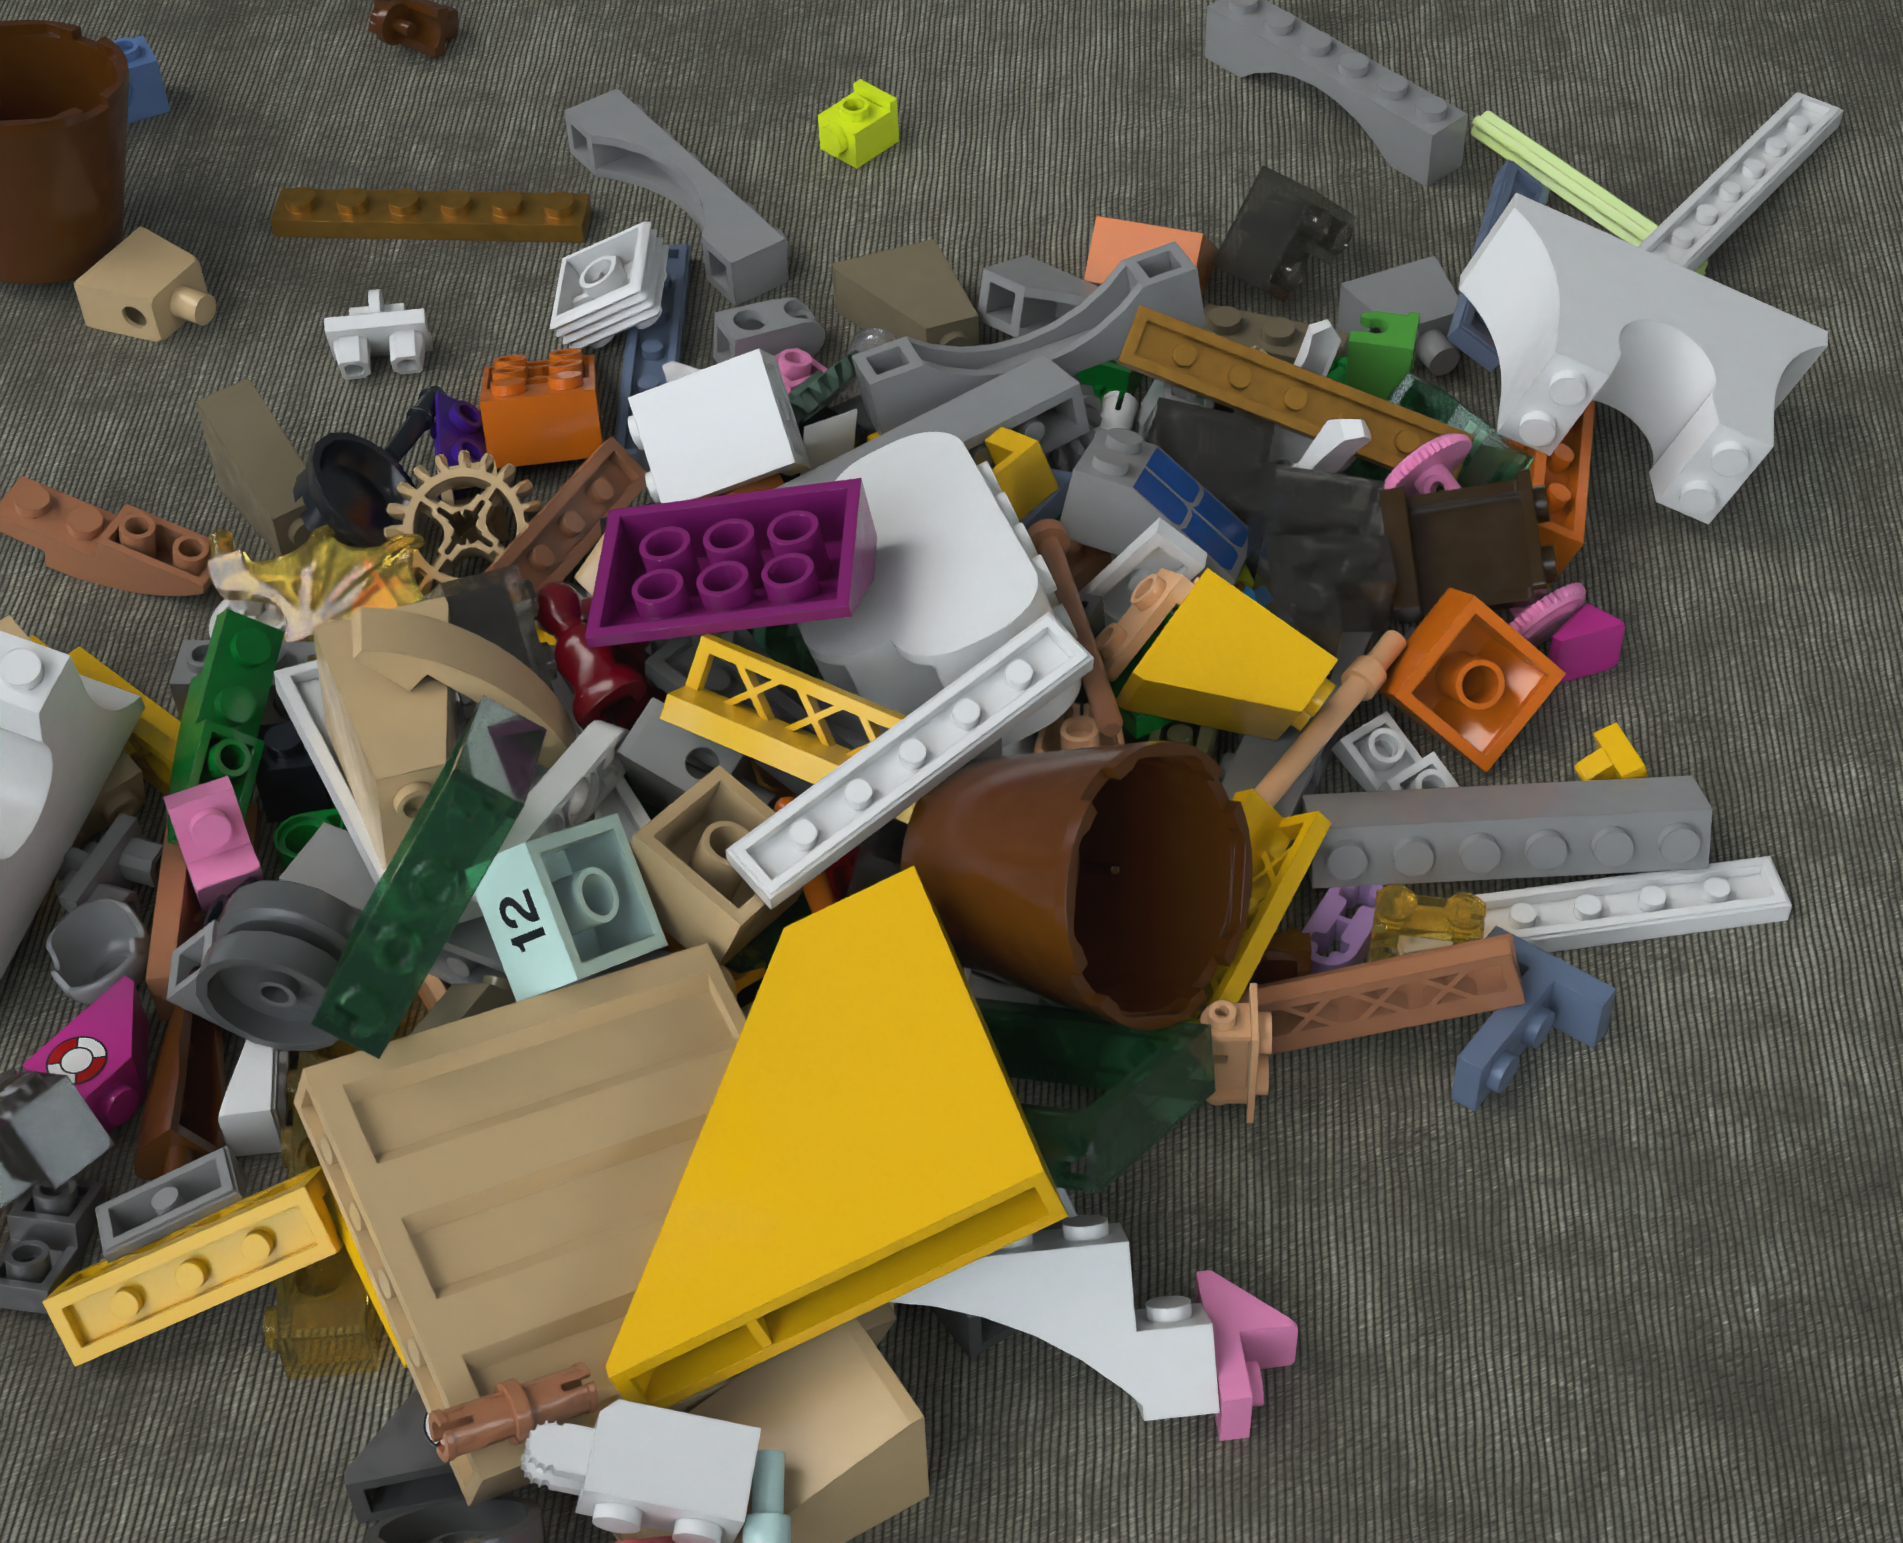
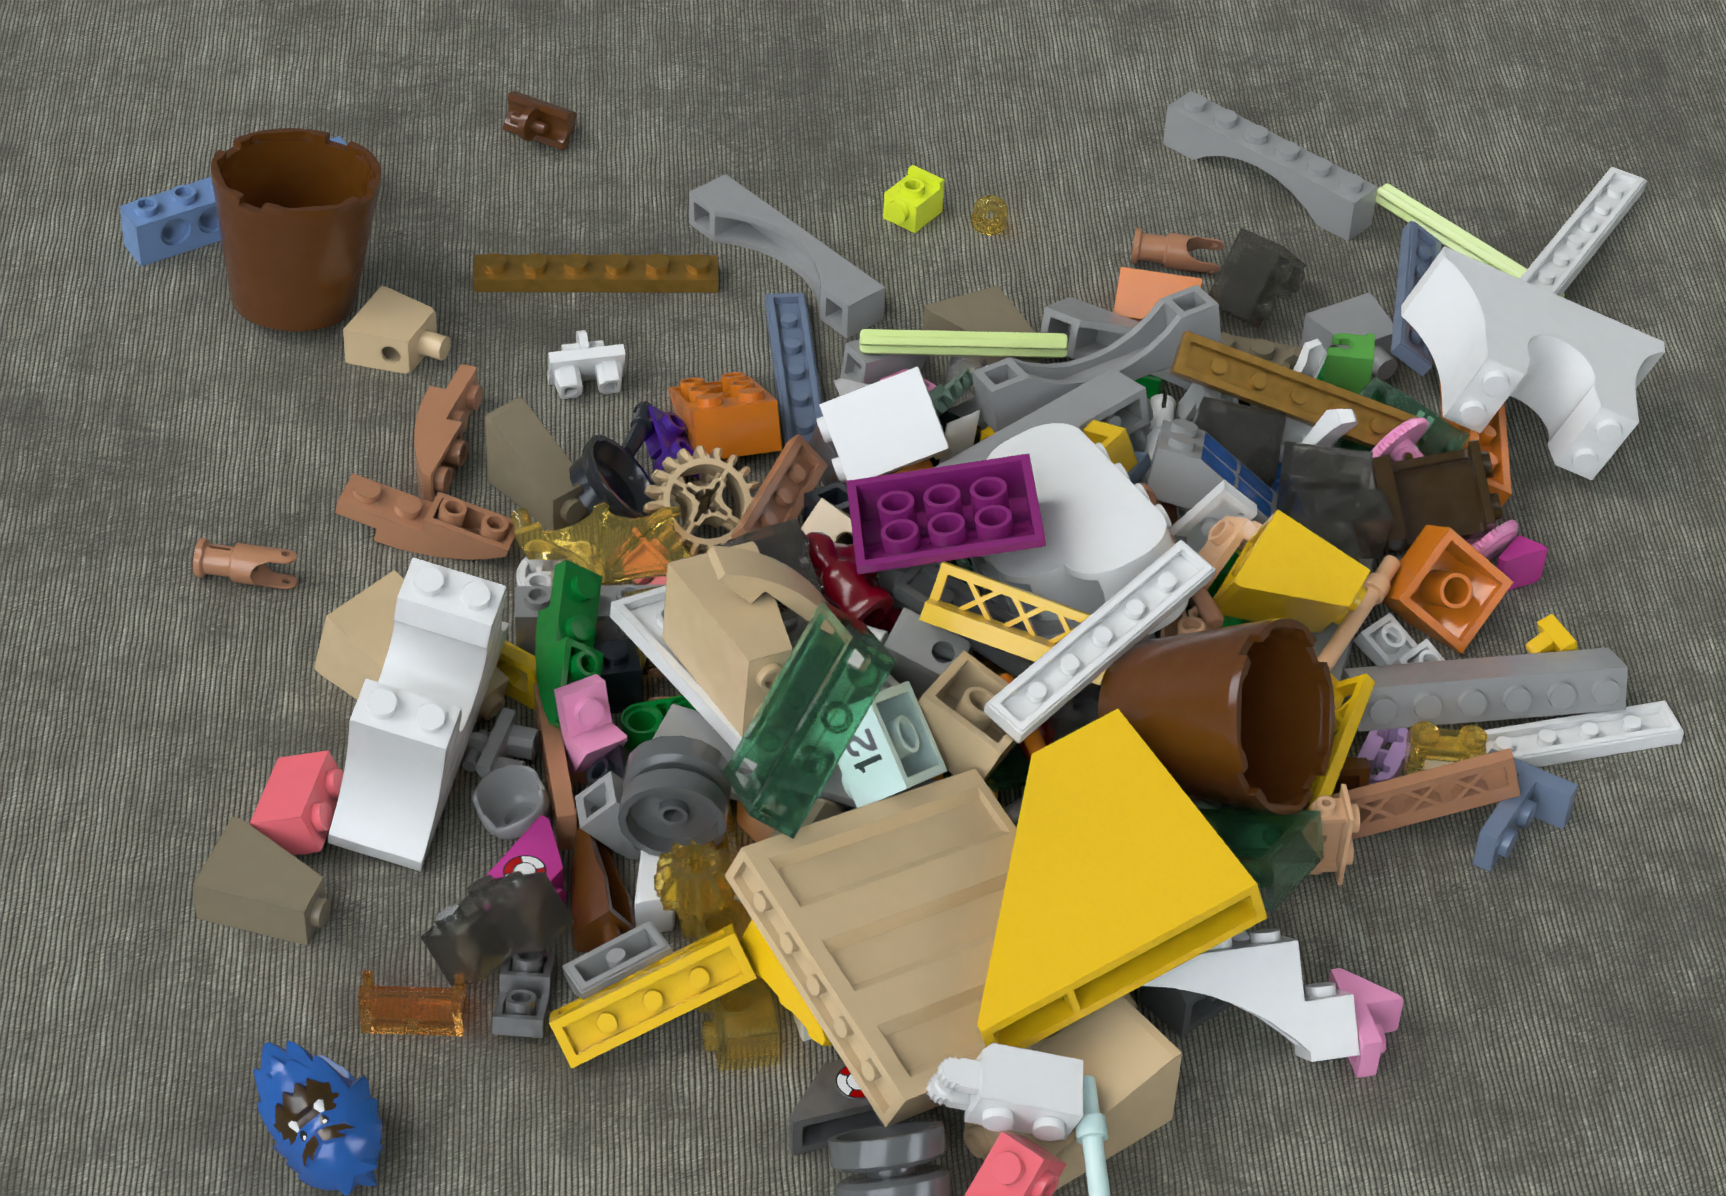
camera: 10 degrees left, 5 degrees down
(159, 423) = (440, 431): none -> nougat slope
(270, 1084) = (694, 880): none -> clear yellow gear
(512, 1411) = (919, 1056): nougat pin -> none
(610, 287) = (759, 326): white brick -> none
(867, 316) = (963, 343): none -> yellowish green axle
(956, 132) = (989, 204): none -> clear yellow bush
(1183, 195) = (1174, 251): none -> nougat piece

